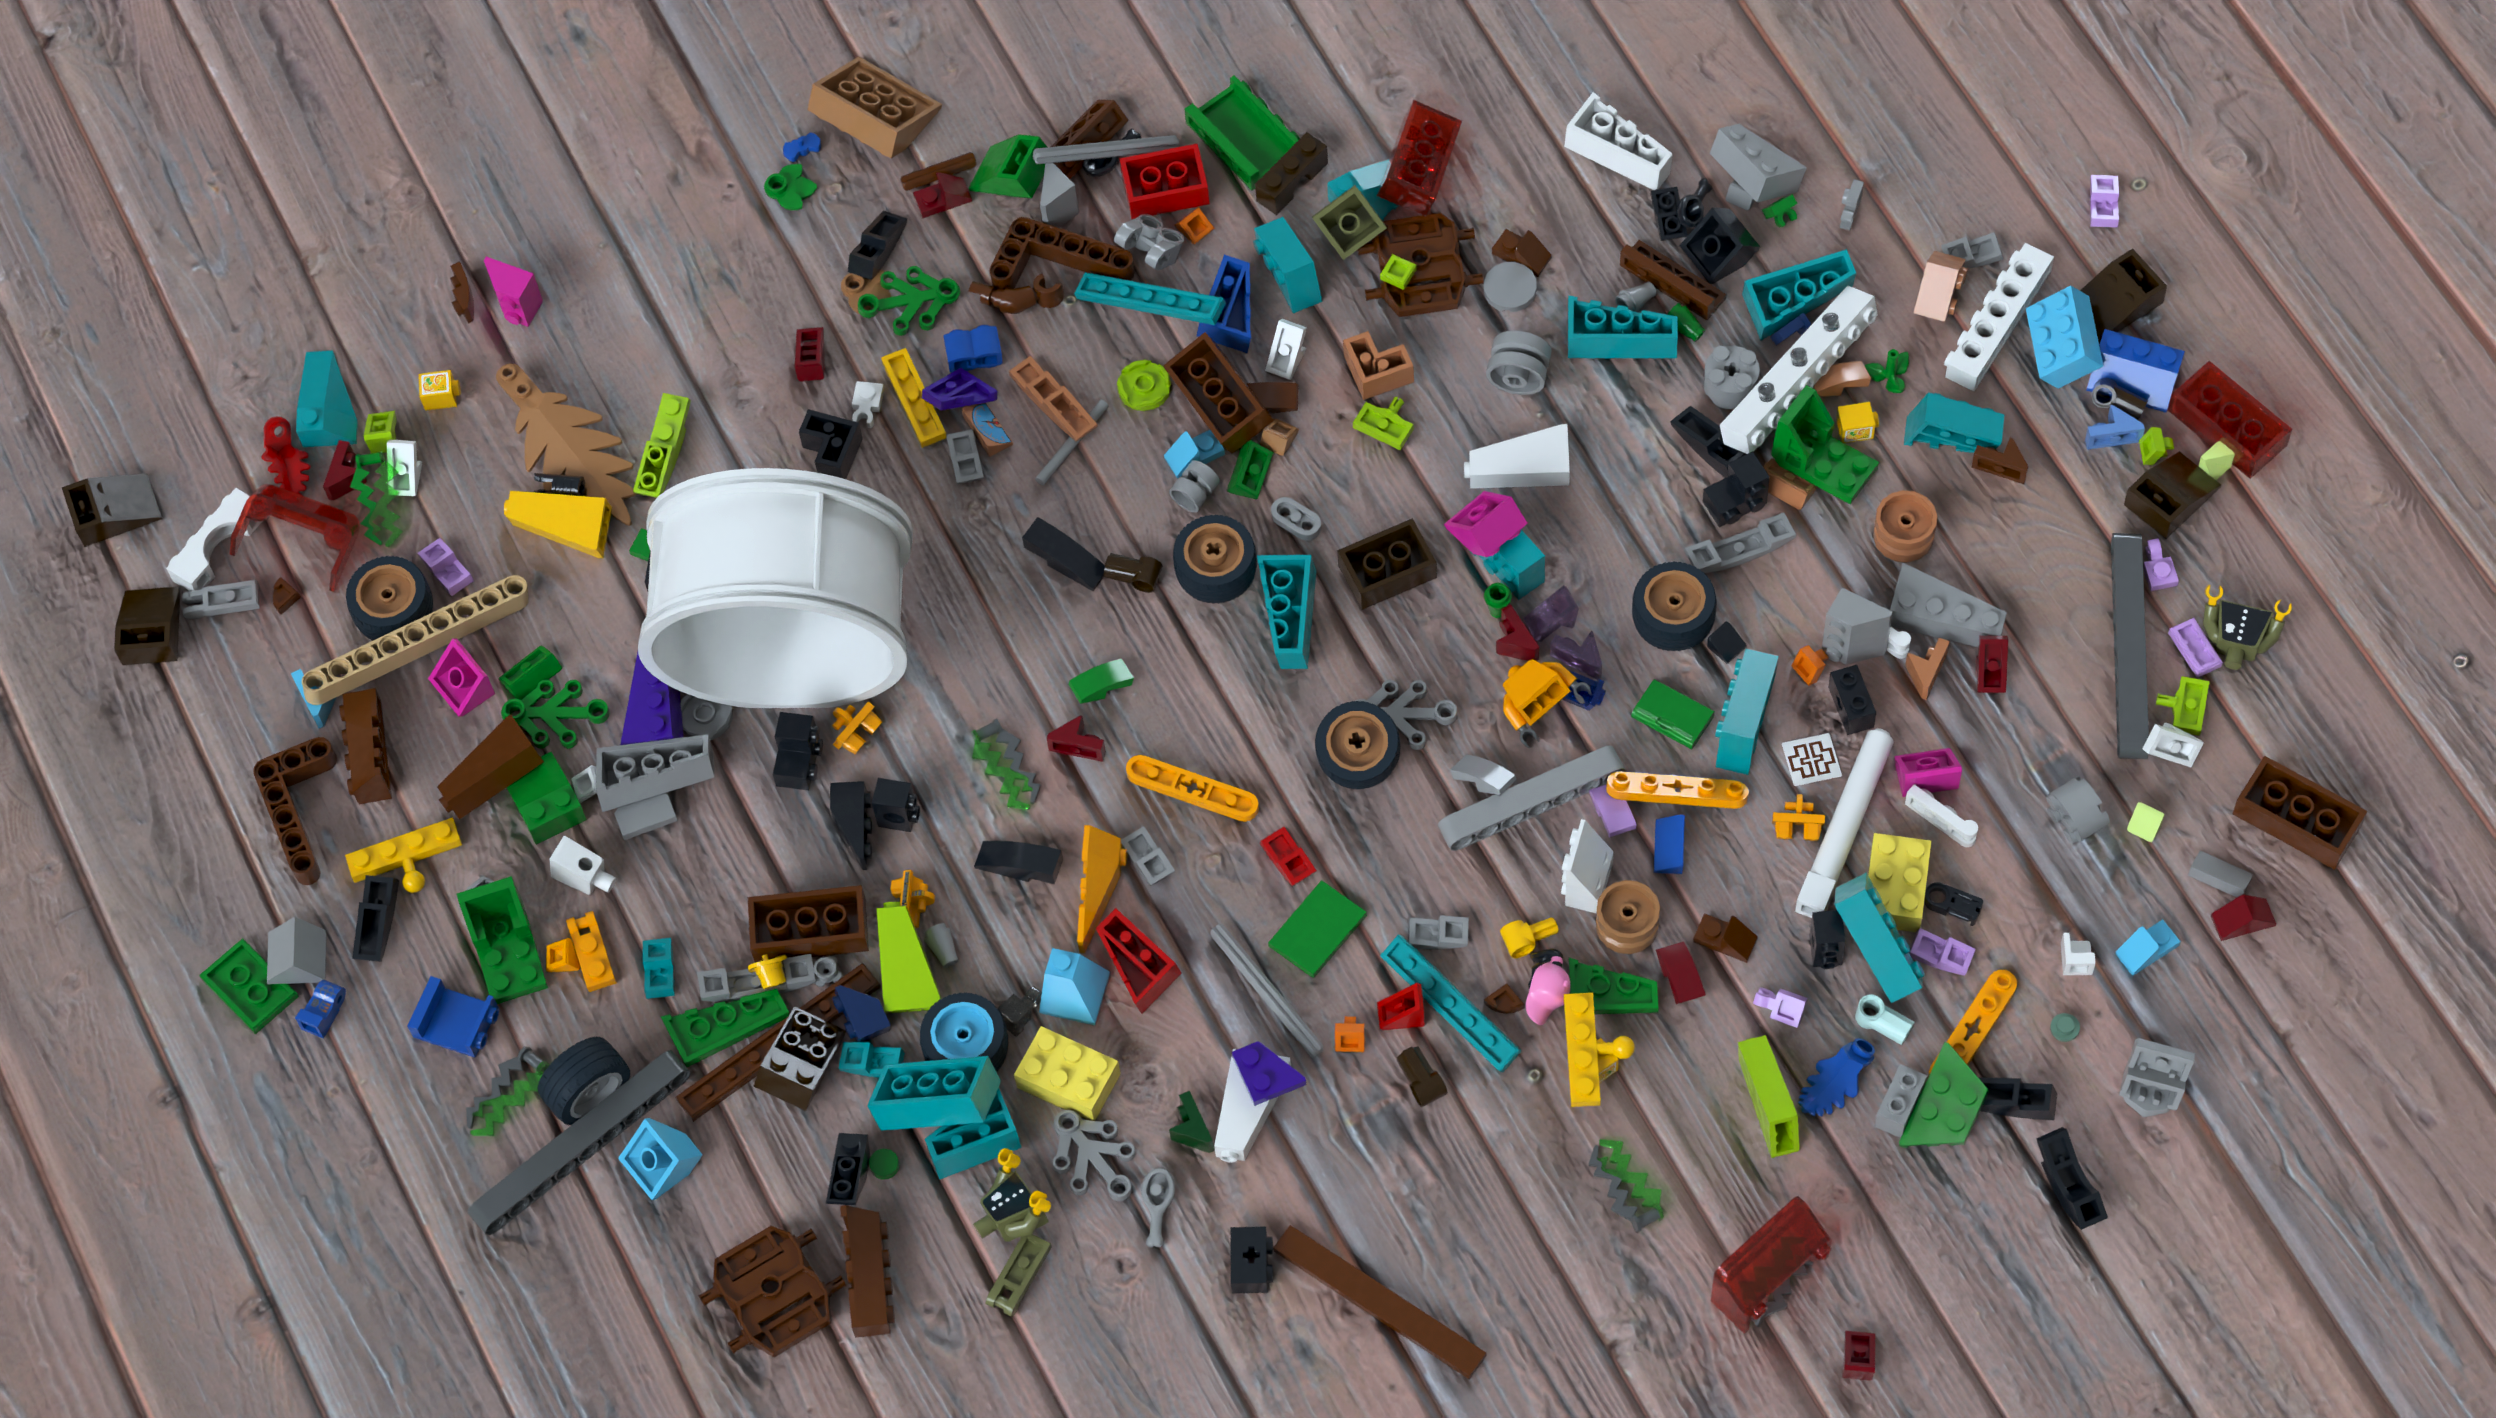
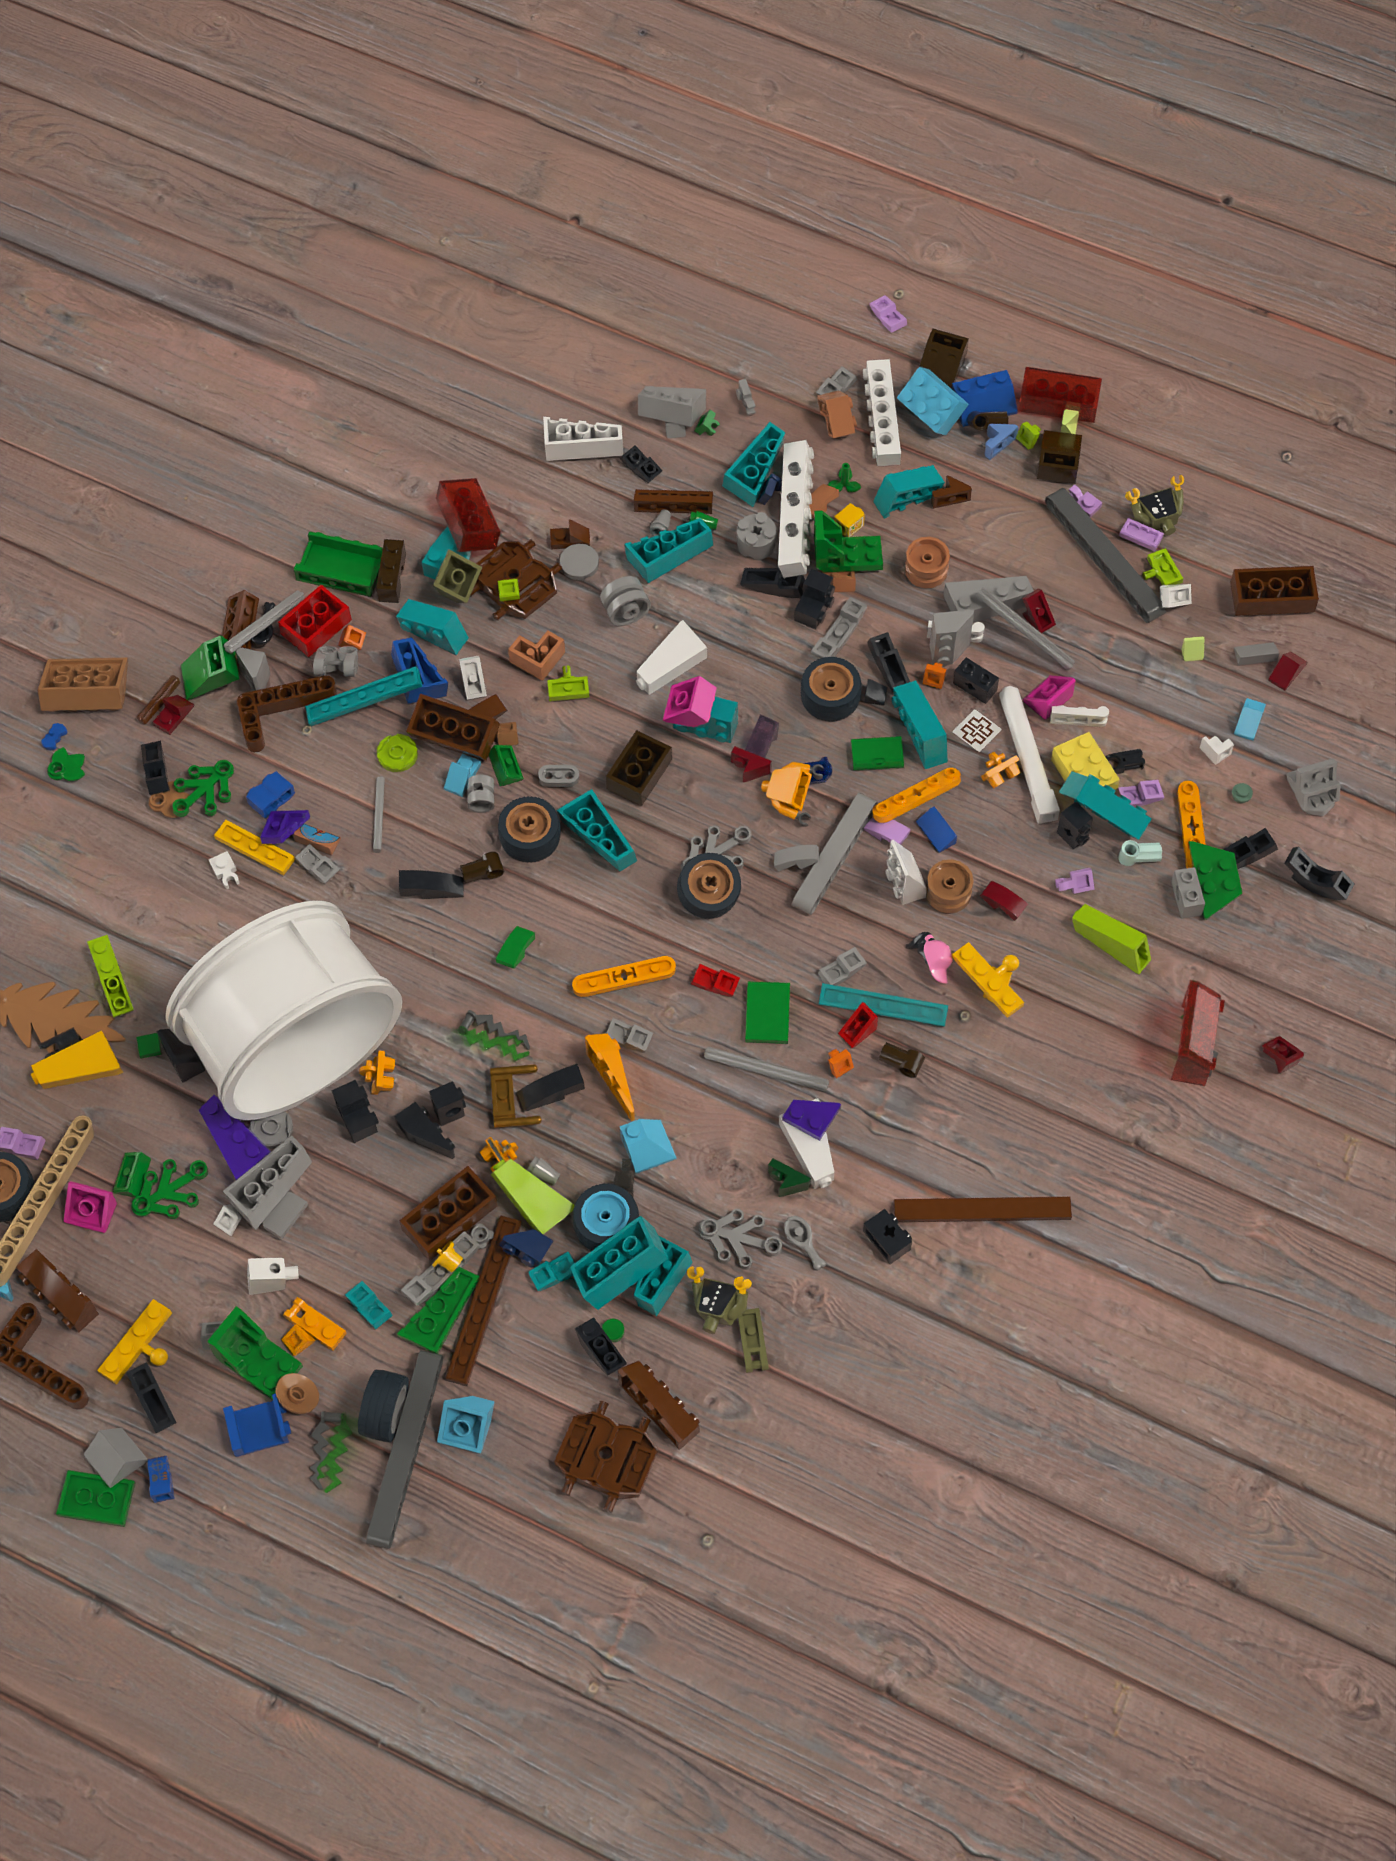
camera: 40 degrees left, 0 degrees up
(489, 768) = (156, 1250): reddish brown slope -> none
(526, 1006) = (297, 1386): none -> medium nougat dish
(546, 800) = (205, 1246): green slope -> none
(799, 1058) = (509, 1300): dark brown slope -> none
(805, 368) = (170, 870): dark red slope -> none
(834, 440) = (223, 902): black brick -> none
(963, 838) = (504, 1096): none -> pearl gold plate
(1022, 298) = (276, 746): reddish brown piece -> none
(1053, 399) = (347, 795): nougat slope -> none
(1067, 1074) = (686, 1198): light yellow brick -> none
(1070, 741) = (526, 996): dark red slope -> none
(1138, 960) = (675, 1100): red wedge -> none
(1497, 597) = (723, 746): green cone -> none
(1504, 1001) = (913, 983): reddish brown tile -> none
(1521, 937) = (895, 938): yellow axle -> none
(1581, 658) = (801, 751): clear purple slope -> none
(1613, 991) = (978, 933): green wing -> none
(1620, 1174) = (1062, 1040): piece -> none
(1690, 208) = (654, 451): black piece -> none
(1719, 244) = (687, 465): black slope -> none
(1727, 938) = (1010, 864): reddish brown slope -> none
(1770, 614) = (888, 660): none -> black slope
(1837, 1078) = (1140, 903): blue plant -> none
(1926, 670) = (1003, 638): nougat slope -> none
(1956, 674) = (1025, 628): none -> light grey axle
(2077, 809) = (1153, 664): light grey brick -> none

